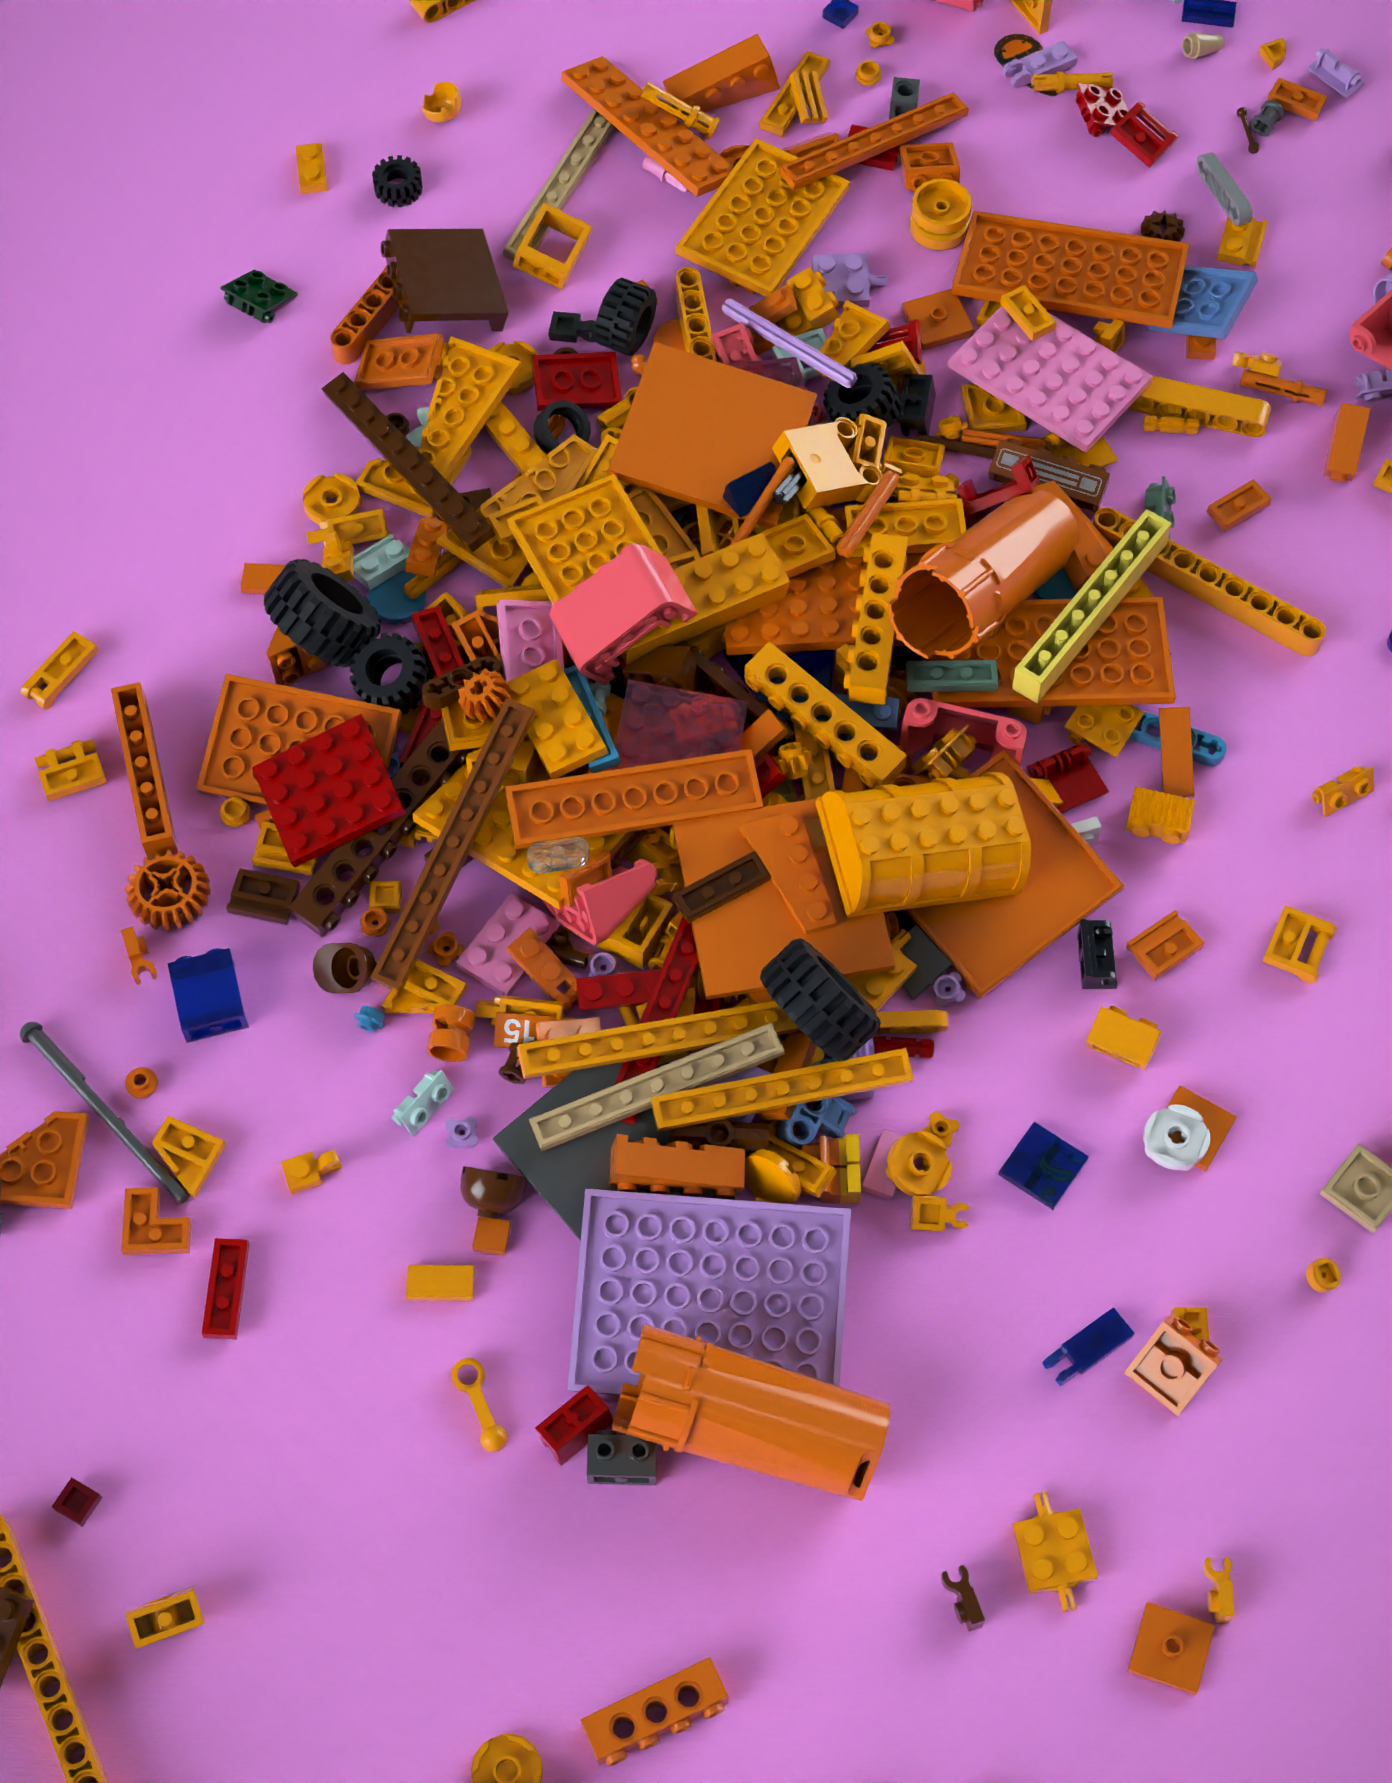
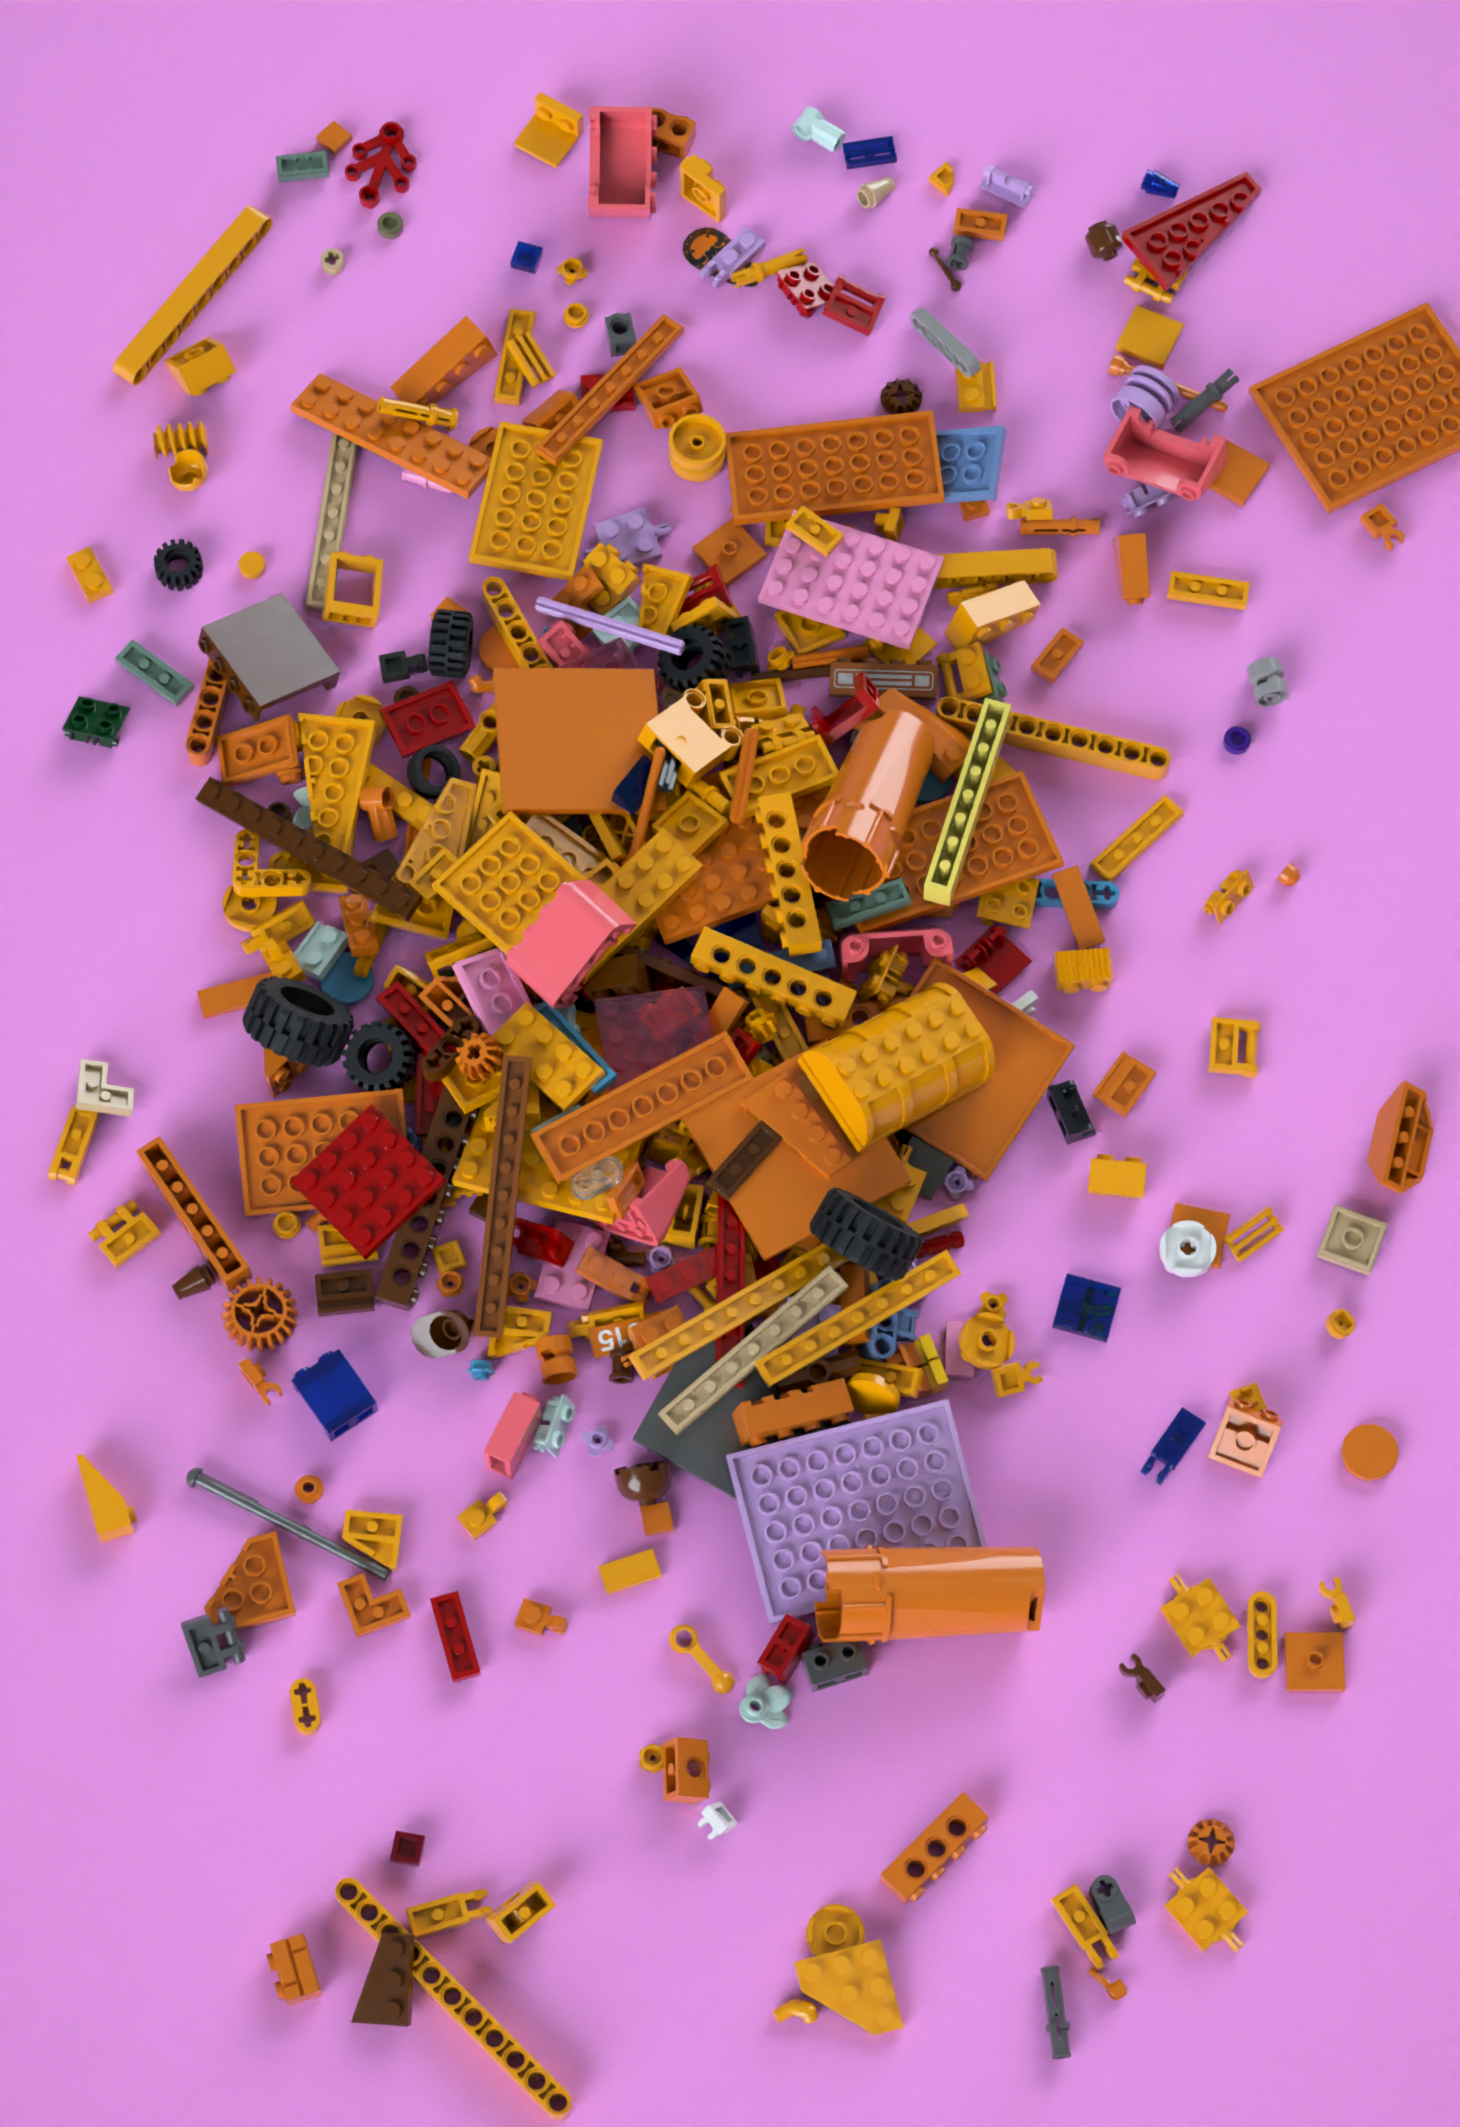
camera: 20 degrees left, 5 degrees up
(31, 1306) = (298, 1707): none -> light orange beam
(86, 1589) = (445, 1913): none -> light orange hinge
(102, 627) = (96, 1095): none -> tan plate
(118, 837) = (194, 1282): none -> reddish brown cone
(321, 1298) = (536, 1618): none -> orange plate
(333, 267) = (154, 673): none -> sand green plate
(371, 1094) = (513, 1434): none -> coral brick
(376, 486) = (258, 877): none -> light orange beam
(382, 1486) = (645, 1762): none -> light orange plate
(395, 1532) = (679, 1784): none -> orange brick
(421, 394) = (290, 776): none -> orange plate
(426, 1589) = (718, 1818): none -> white tile
(436, 72) = (180, 438): none -> light orange piece
(467, 202) = (251, 565): none -> light orange tile
(483, 909) = (542, 1242): none -> red hinge
(493, 21) = (201, 366): none -> light orange slope
(493, 439) = (379, 805): none -> orange piece
(534, 1474) = (768, 1699): none -> light aqua plate
(1129, 1584) = (1266, 1623): none -> light orange plate
(1144, 490) = (972, 671): none -> light orange plate
(1182, 448) = (992, 615): none -> light orange wedge
(1263, 705) = (1136, 839): none -> light orange tile
(1281, 1139) = (1265, 1238): none -> light orange tile
(1312, 1429) = (1369, 1452): none -> orange tile

